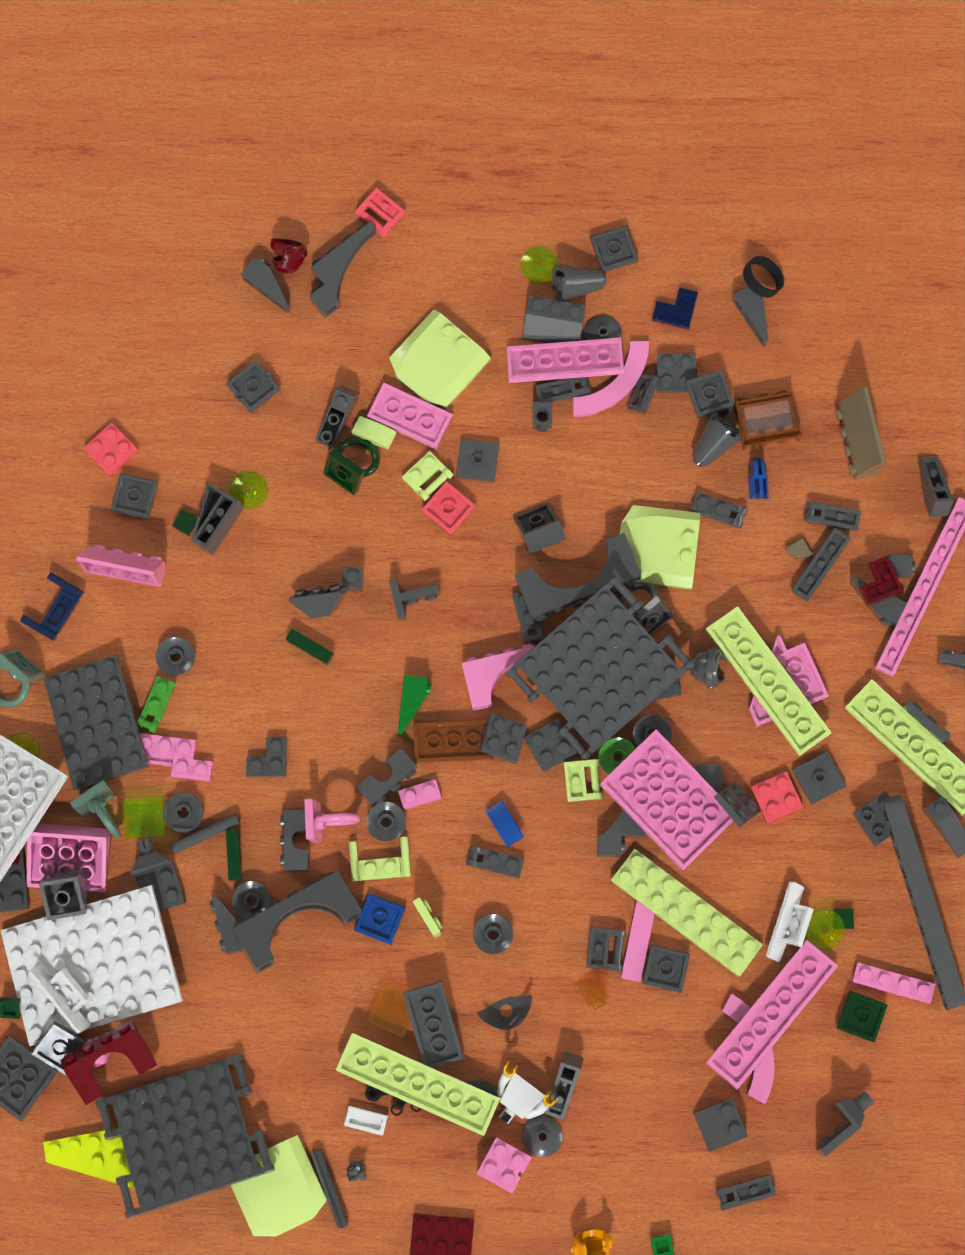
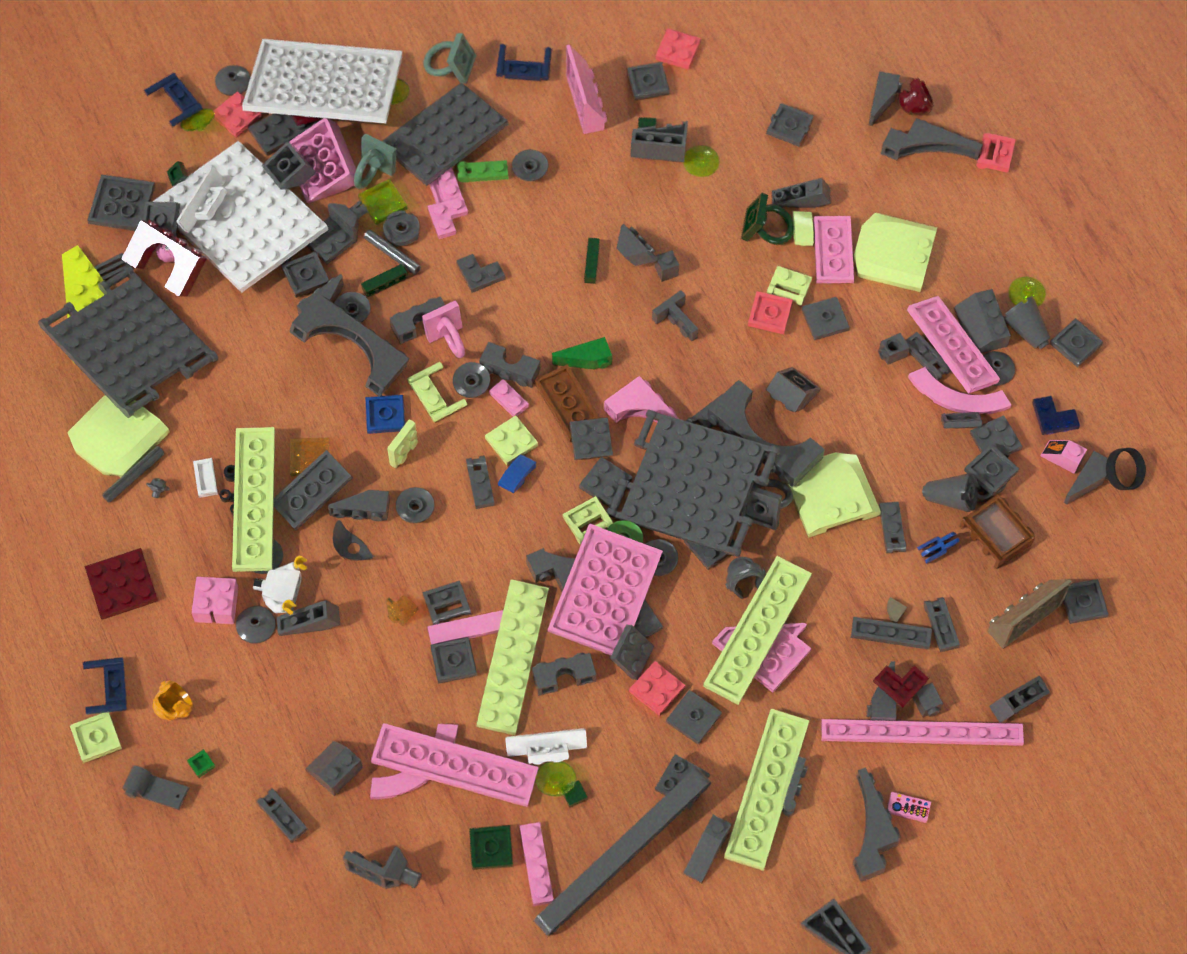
camera: 60 degrees right, 15 degrees down
(85, 1116) = (110, 265): none -> dark grey tile
(190, 929) = (305, 274): none -> dark grey plate
(465, 812) = (511, 440): none -> yellowish green plate
(471, 978) = (367, 505): none -> dark grey slope
(720, 321) = (1064, 454): none -> bright pink slope
(727, 856) = (579, 667): none -> dark grey arch
(871, 376) = (1085, 602): none -> dark grey plate

